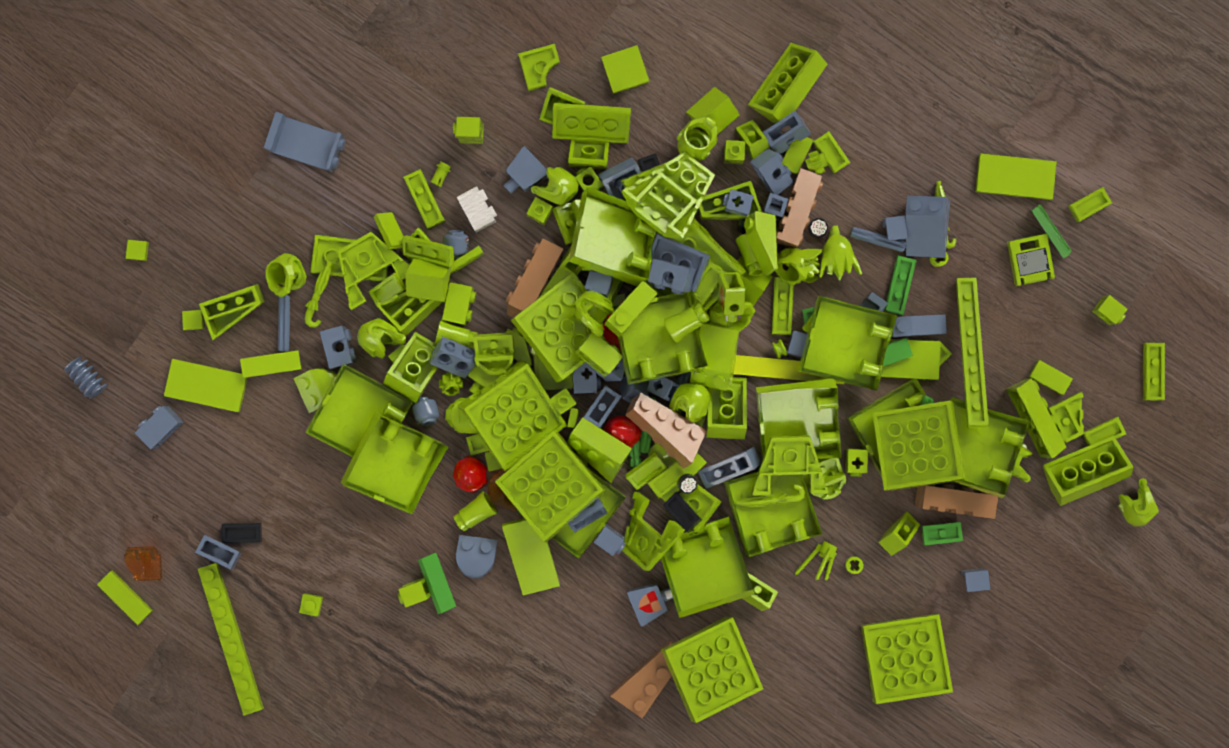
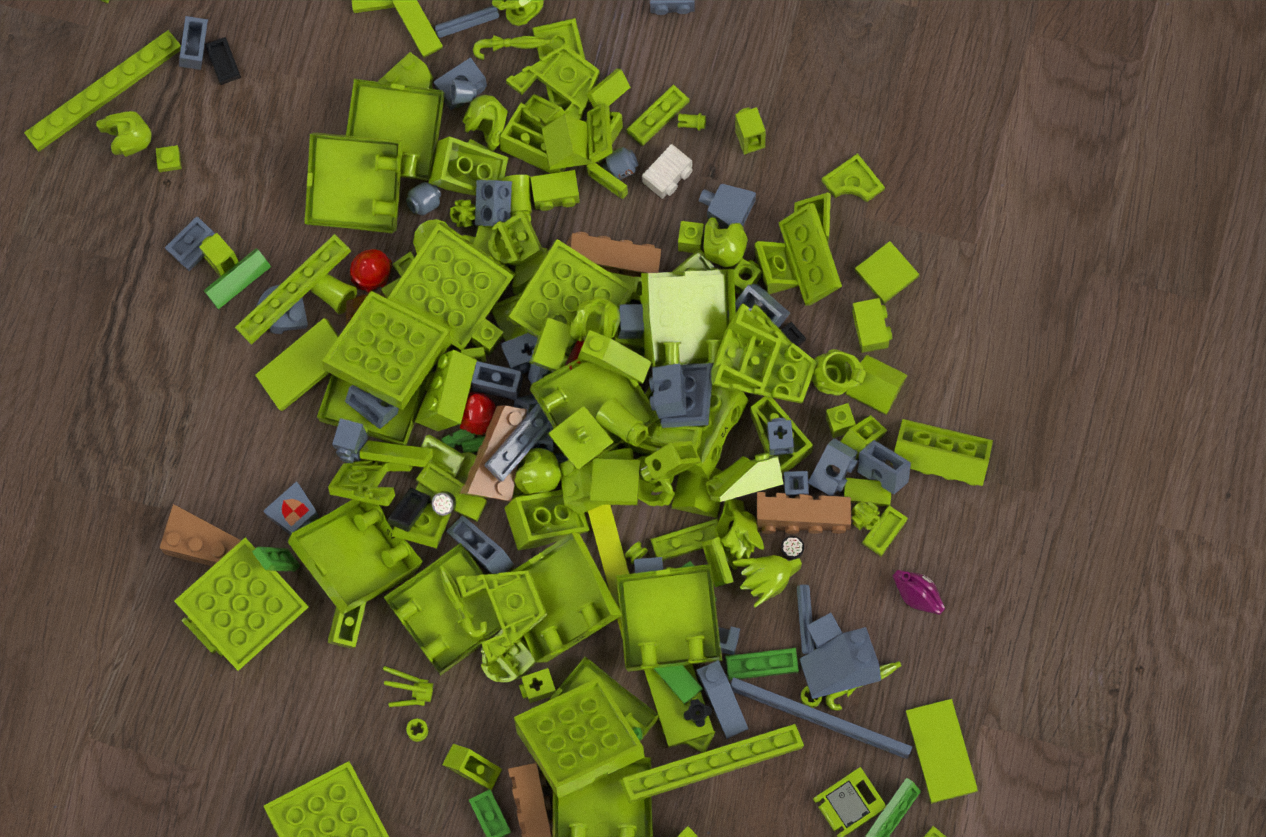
camera: 70 degrees right, 15 degrees down
(280, 628) = (131, 132): none -> lime helmet
(349, 349) = (462, 91): none -> sand blue hat
(391, 610) = (186, 244): none -> sand blue plate
(466, 542) = (292, 289): none -> lime tile
(632, 506) = (396, 453): none -> lime tile
(665, 98) = (870, 325): none -> lime brick
(667, 409) = (518, 443): none -> sand blue tile
(687, 359) = (580, 438): none -> lime piece
(687, 631) = (276, 559): none -> bright green tile
(728, 344) = (615, 482): none -> lime tile
(811, 289) = (717, 559): none -> lime tile
(887, 145) = (918, 591): none -> magenta hat
(929, 348) = (704, 711): none -> black plate
(960, 257) = (820, 718): none -> sand blue tile

